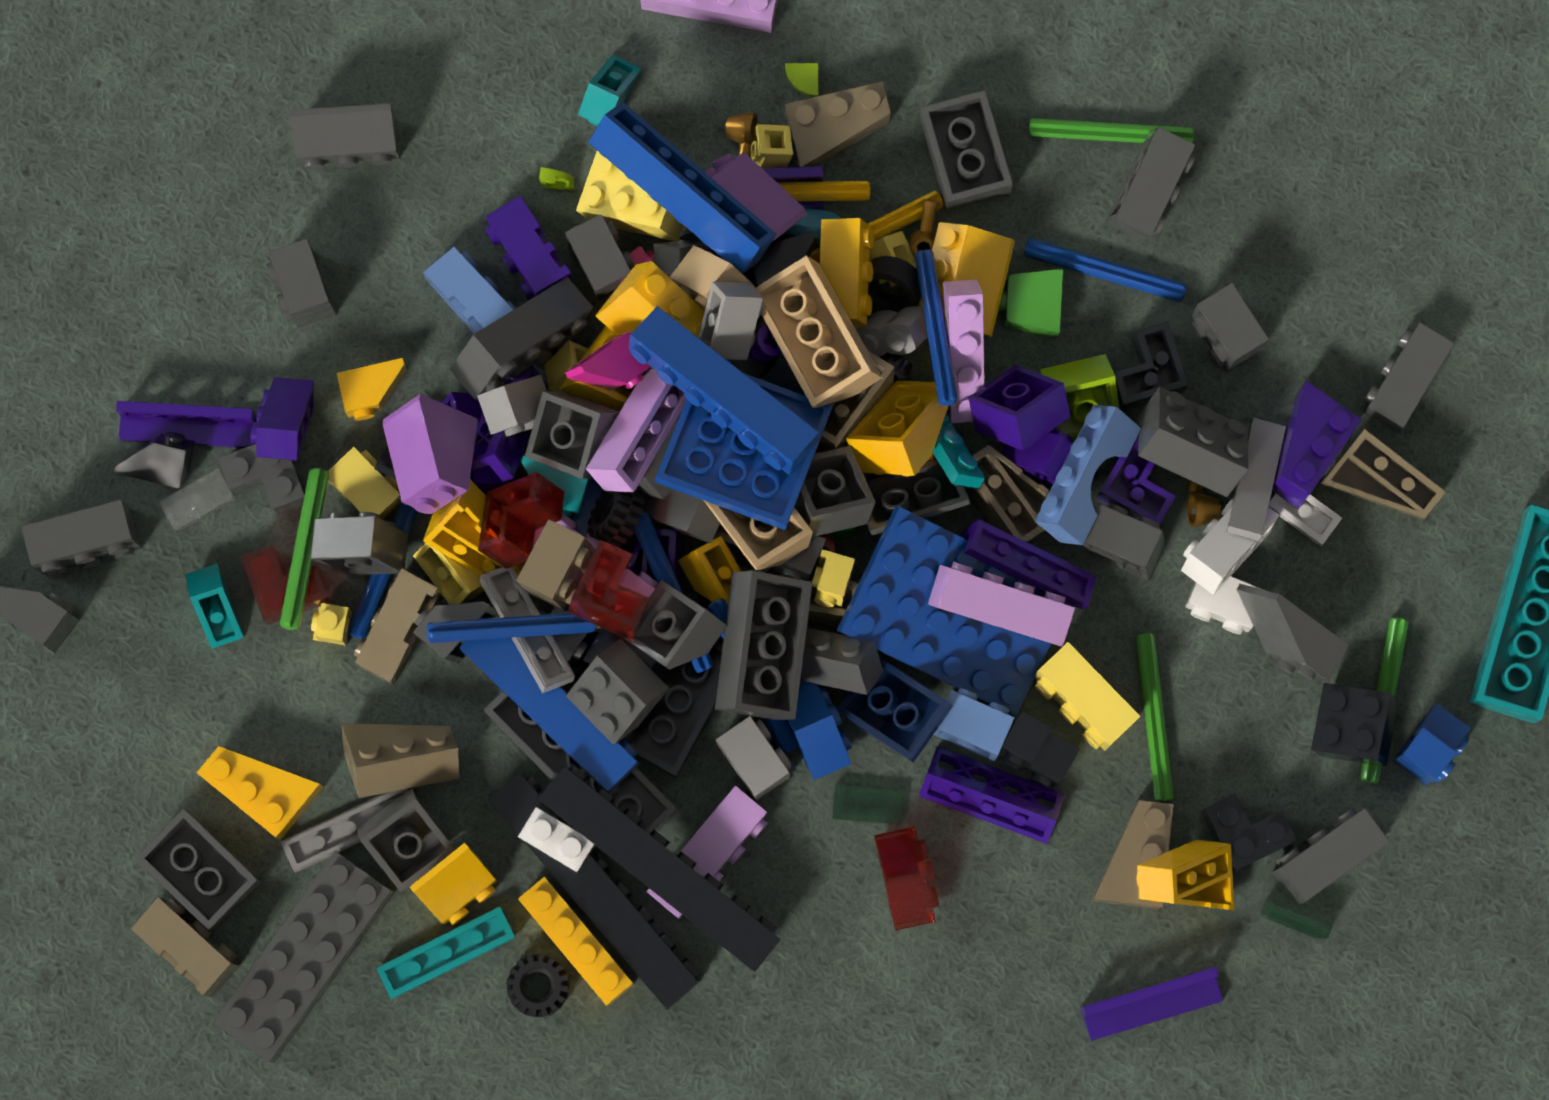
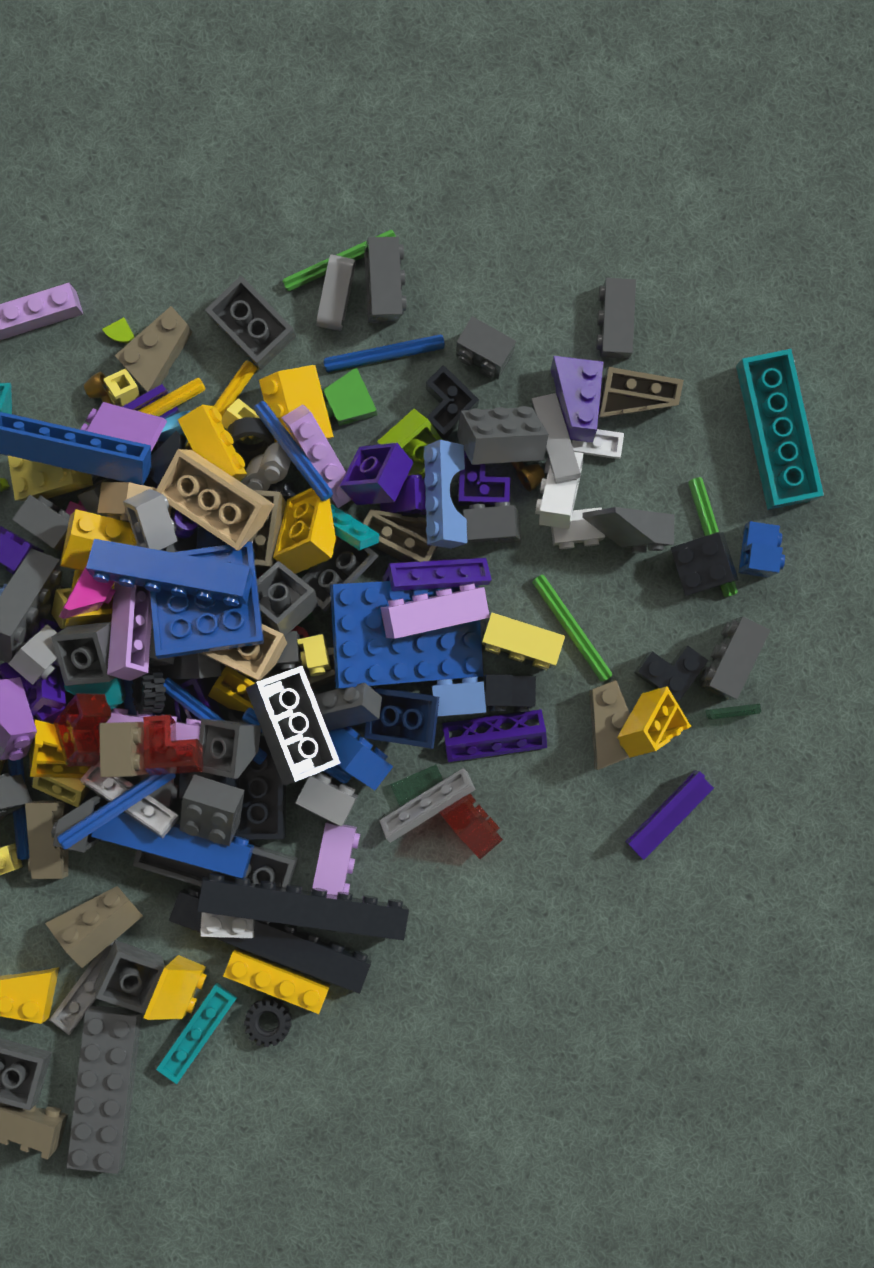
camera: 30 degrees left, 5 degrees up
(866, 831) = (426, 805): none -> light grey tile
(926, 232) = (254, 390): pearl gold bar -> none
(1086, 168) = (336, 292): none -> light grey beam

